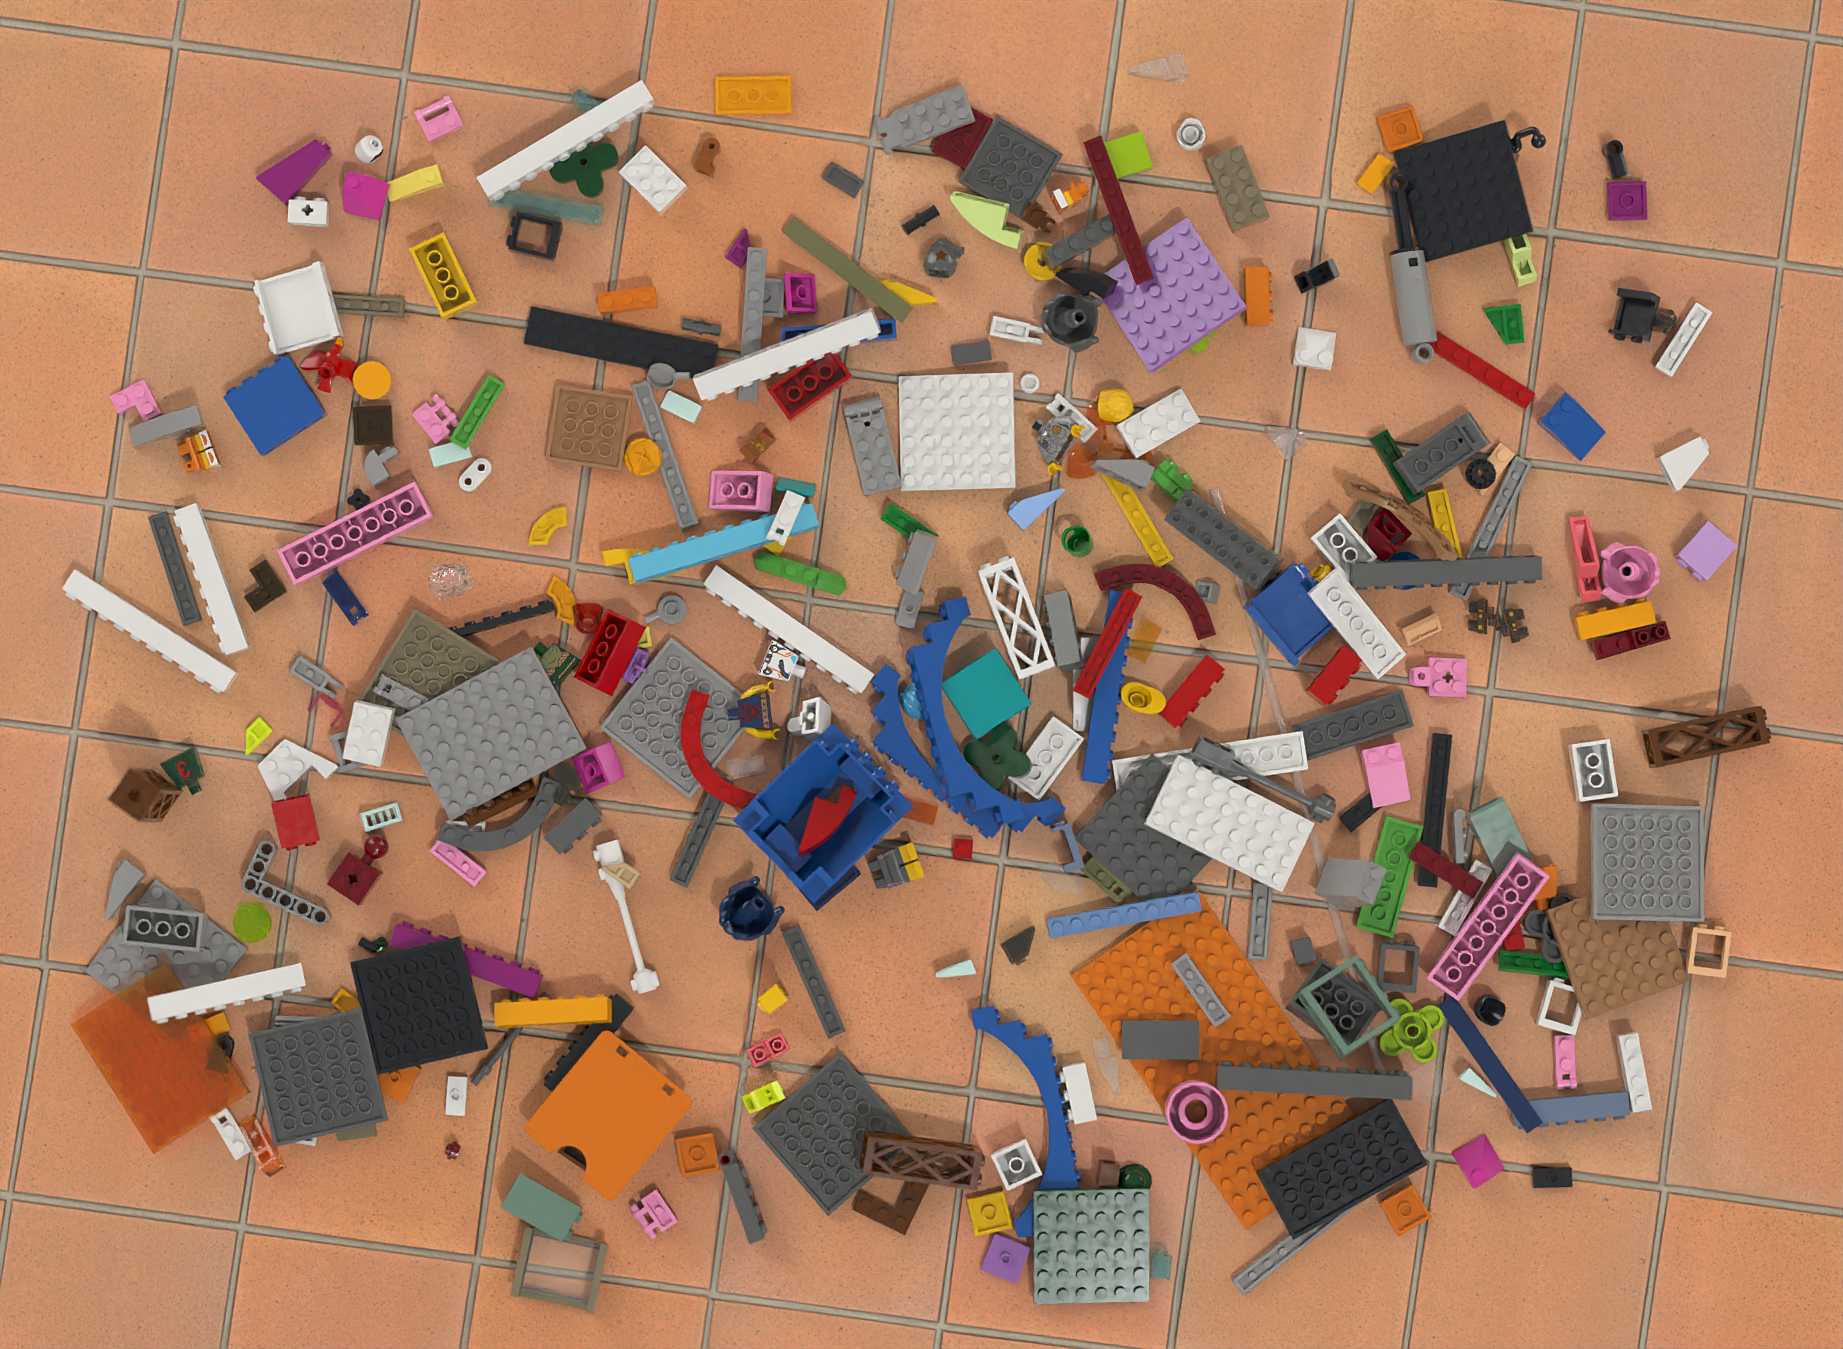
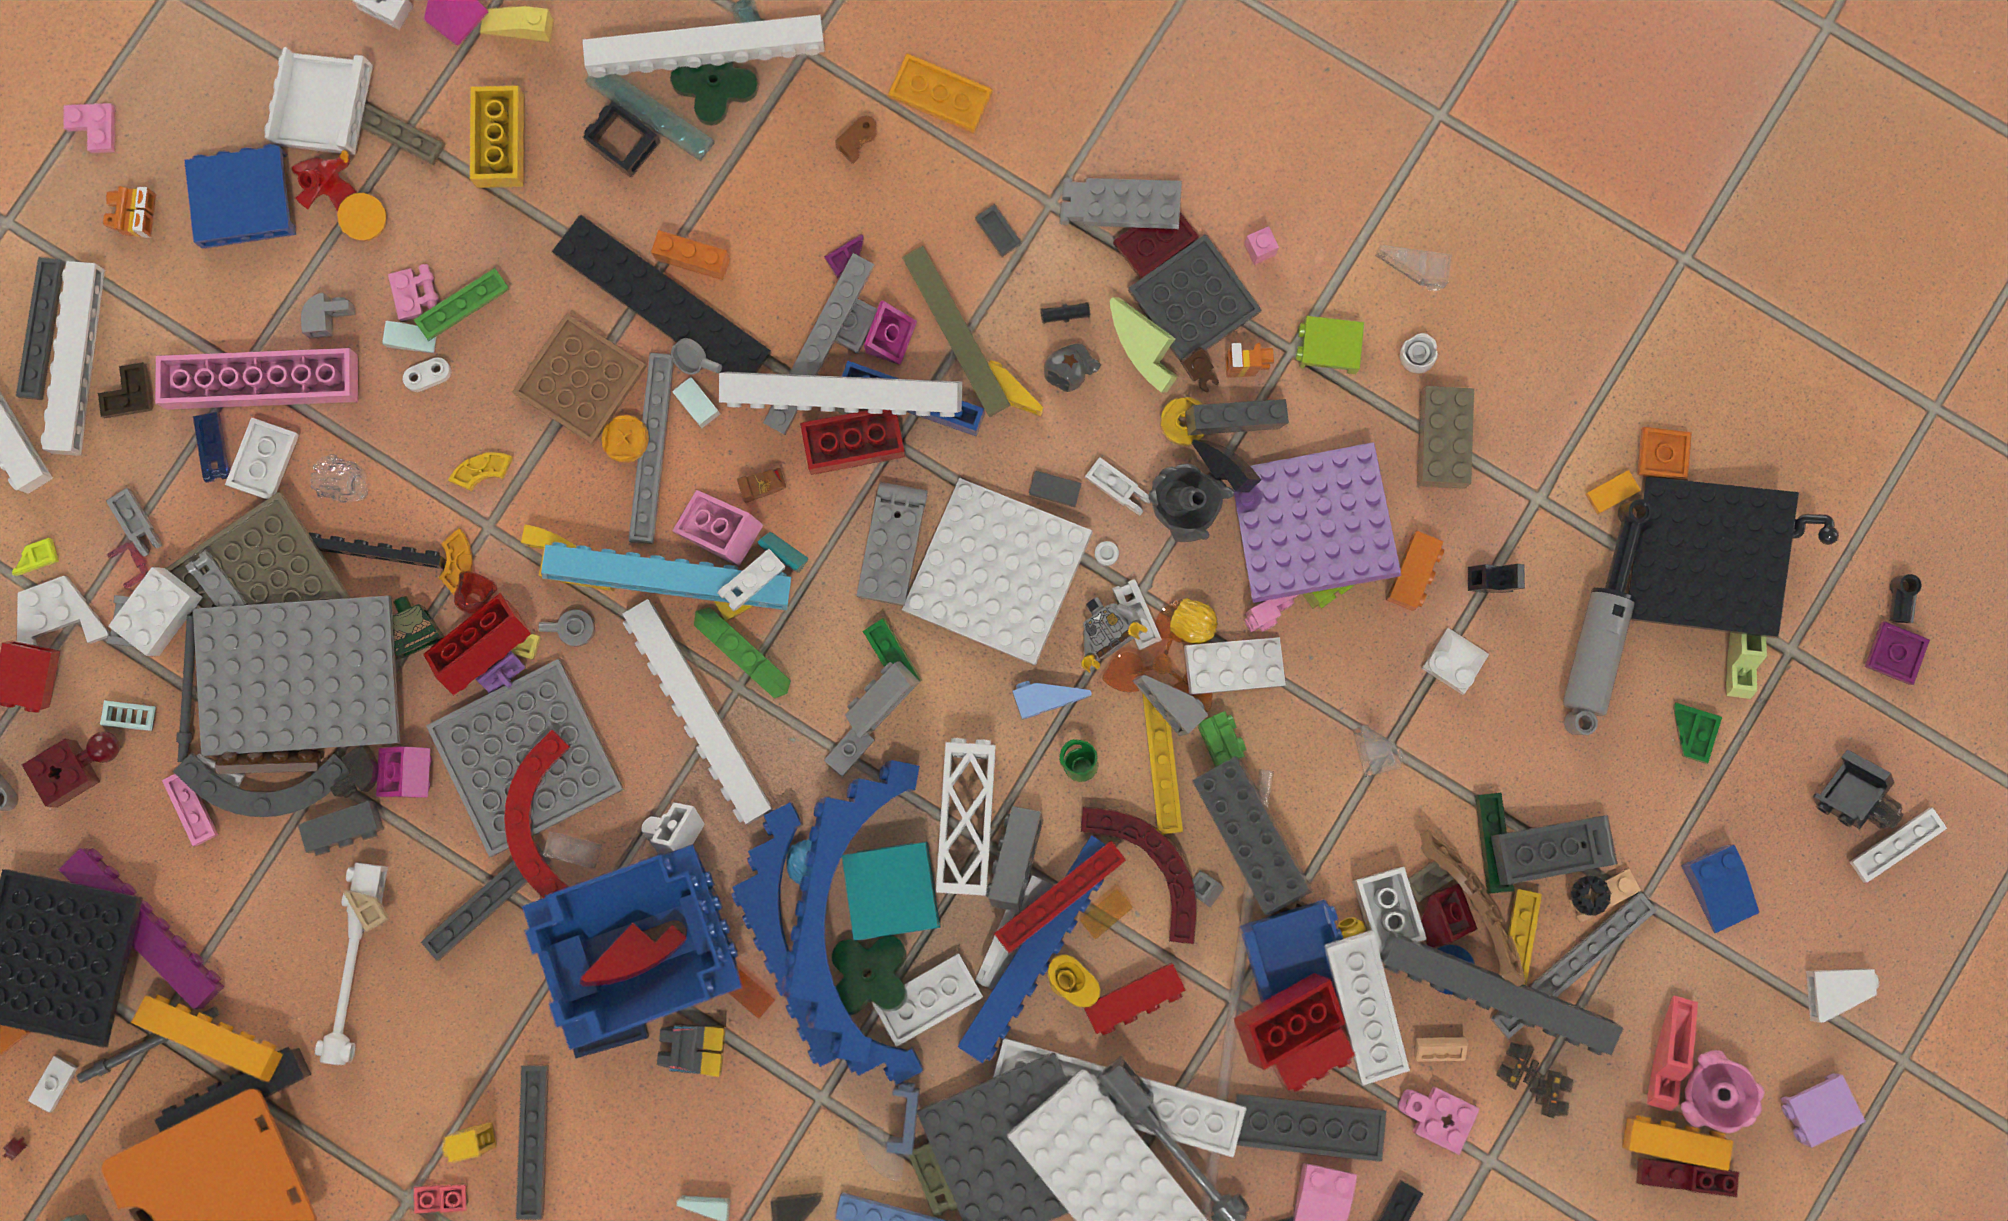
camera: 25 degrees right, 5 degrees down
(166, 426) = (108, 164): light grey slope -> none
(364, 499) = (284, 336): black plate -> none
(373, 425) = (339, 267): dark brown plate -> none
(373, 946) = (44, 861): arm -> none
(386, 590) = (262, 459): none -> white plate
(428, 813) = (184, 735): none -> dark grey bar
(653, 180) = (782, 135): white brick -> none
(701, 327) = (760, 322): dark grey pin -> none
(748, 912) = (490, 1023): dark blue piece -> none
(755, 712) = (612, 790): torso -> none
(781, 663) = (670, 746): torso -> none
(963, 848) = (781, 1062): red plate -> none
(1041, 105) = (1261, 245): none -> bright pink brick
(1118, 210) = (1298, 399): dark red plate -> none
(1163, 377) = (1265, 614): none -> bright pink plate
(1306, 656) = (1289, 1021): none -> red brick
(1482, 371) = (1643, 776): red plate -> none

